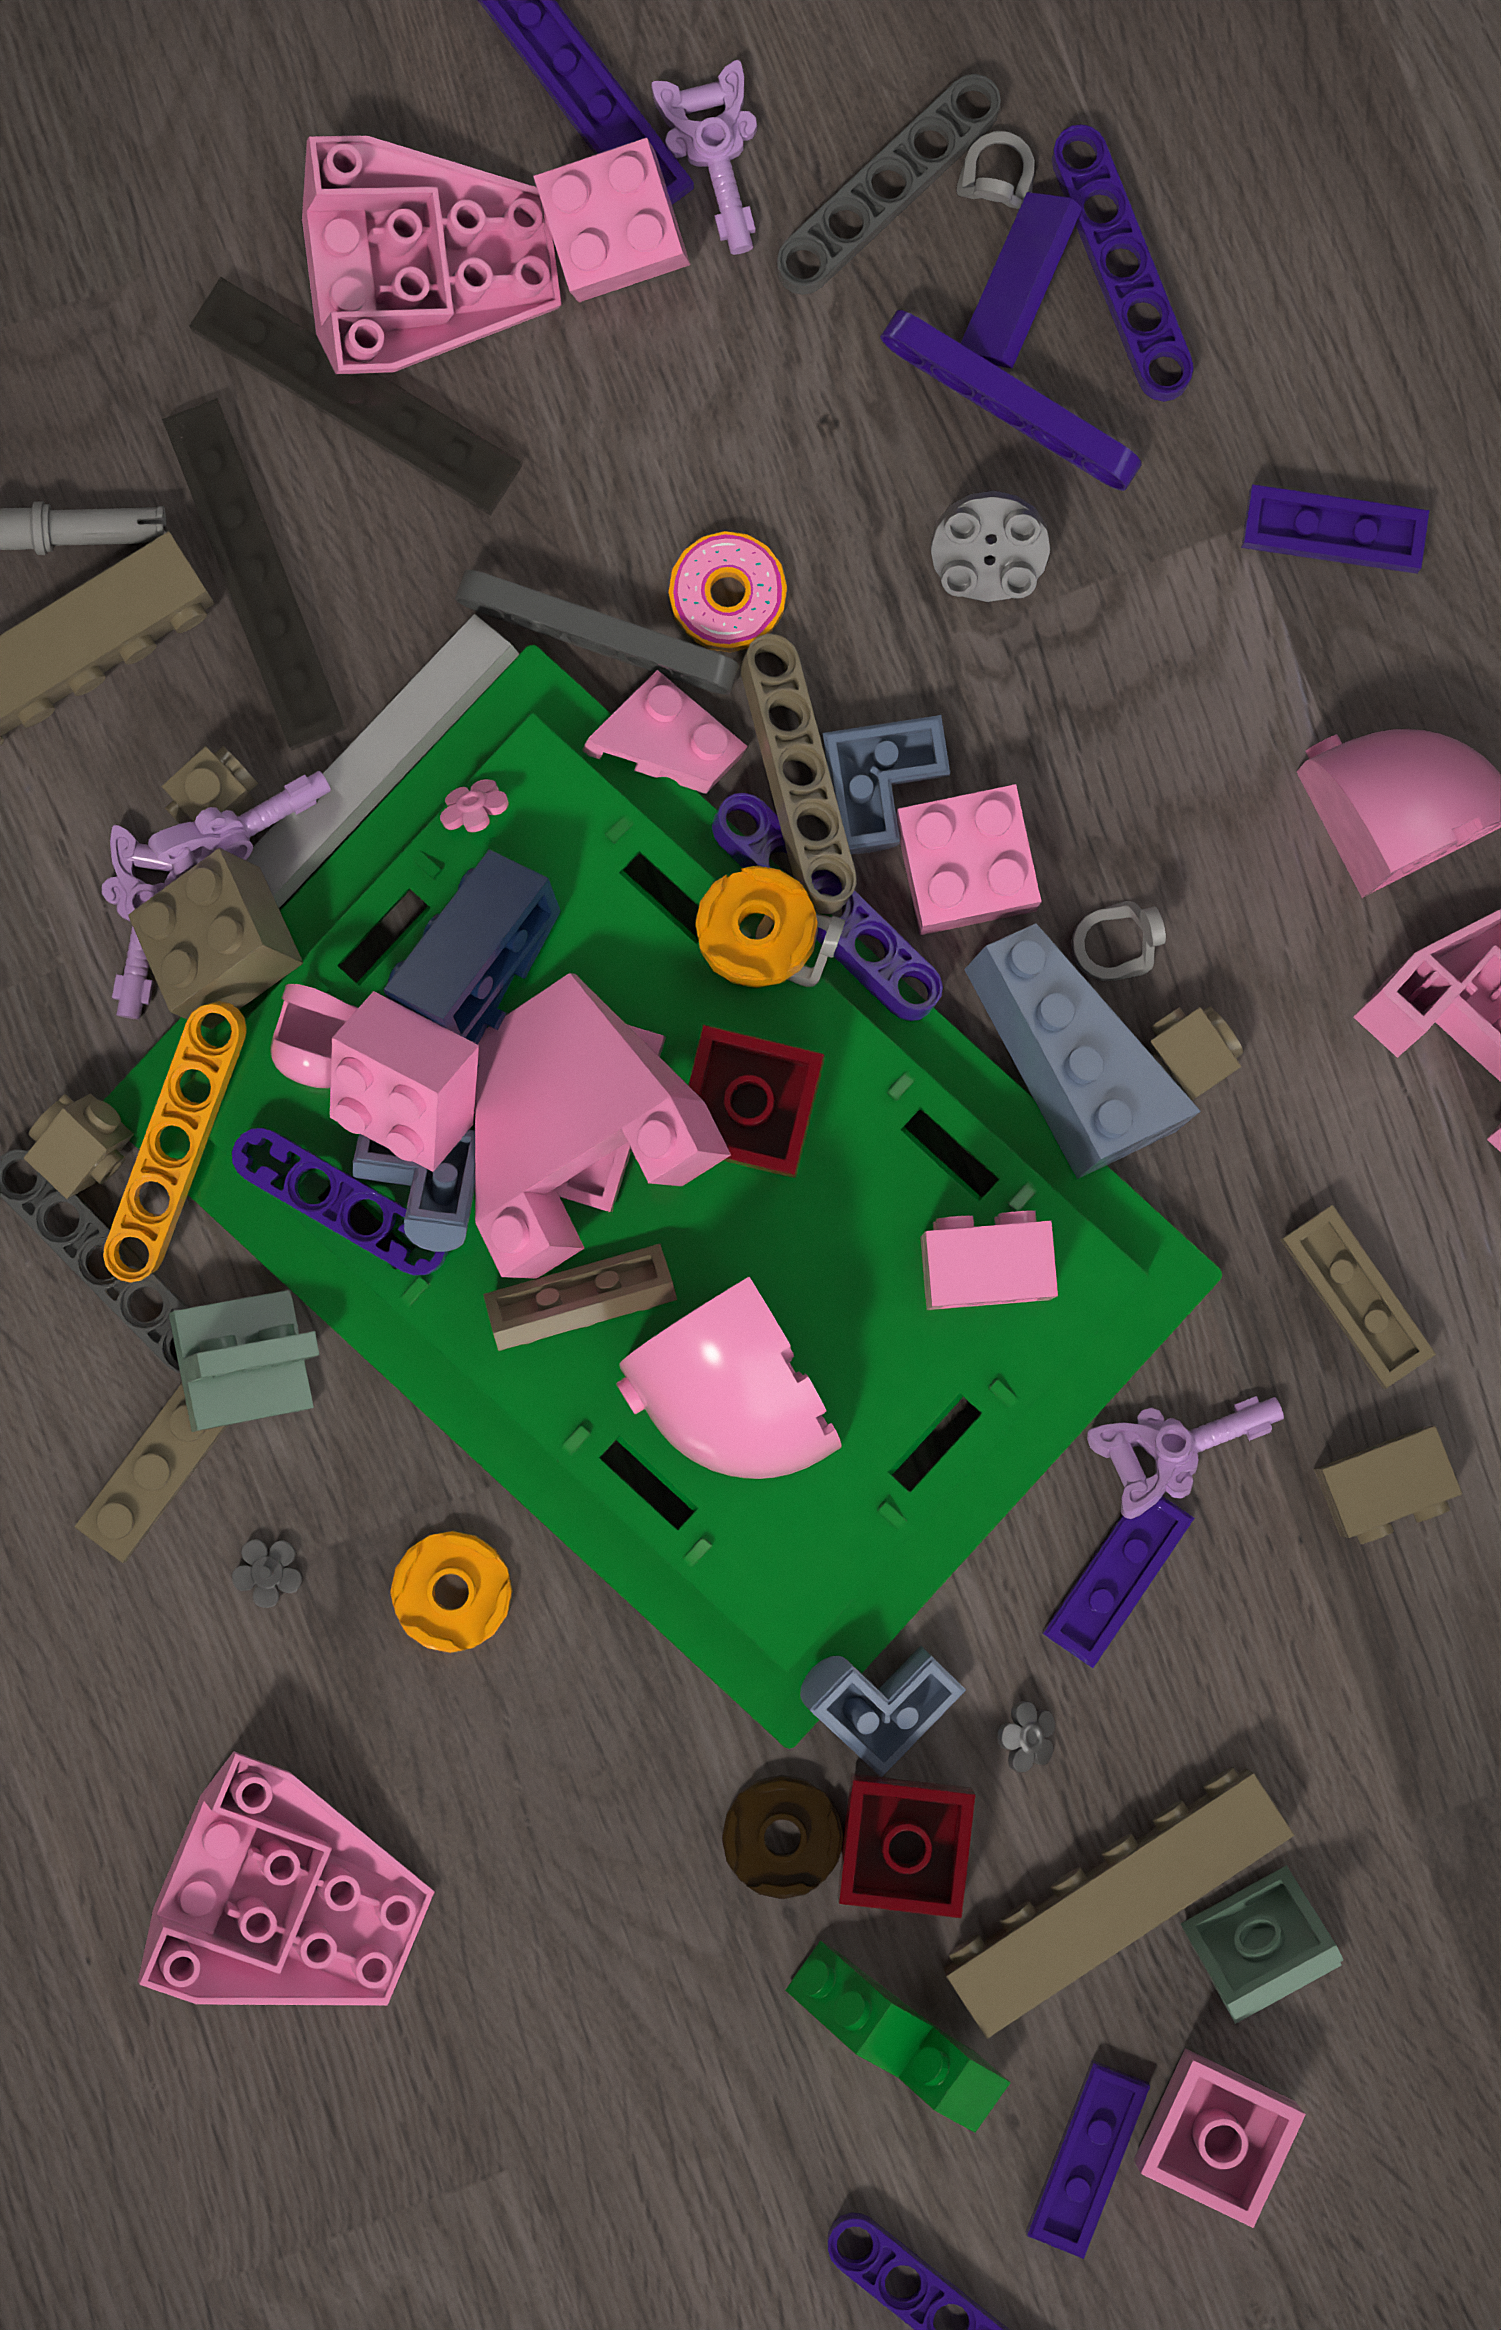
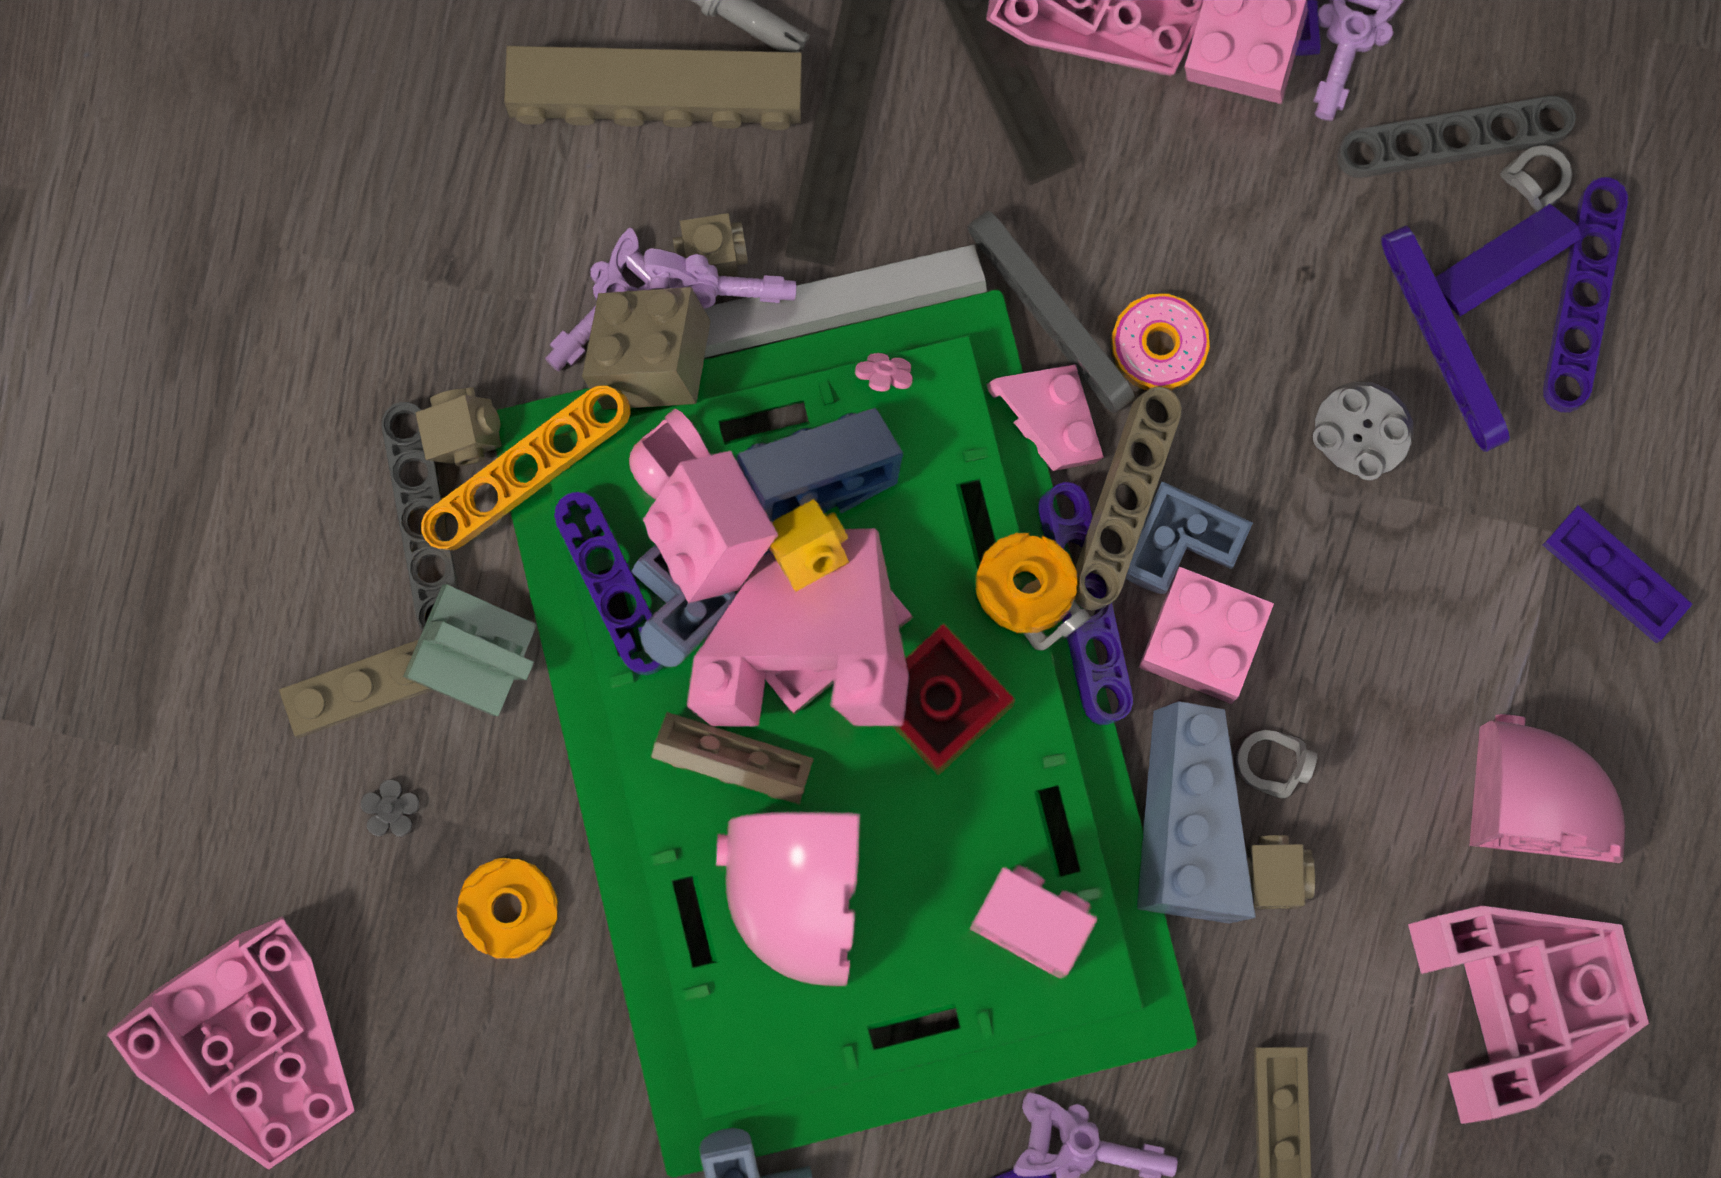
camera: 30 degrees right, 5 degrees down
(515, 1033) = (808, 544): none -> yellow brick

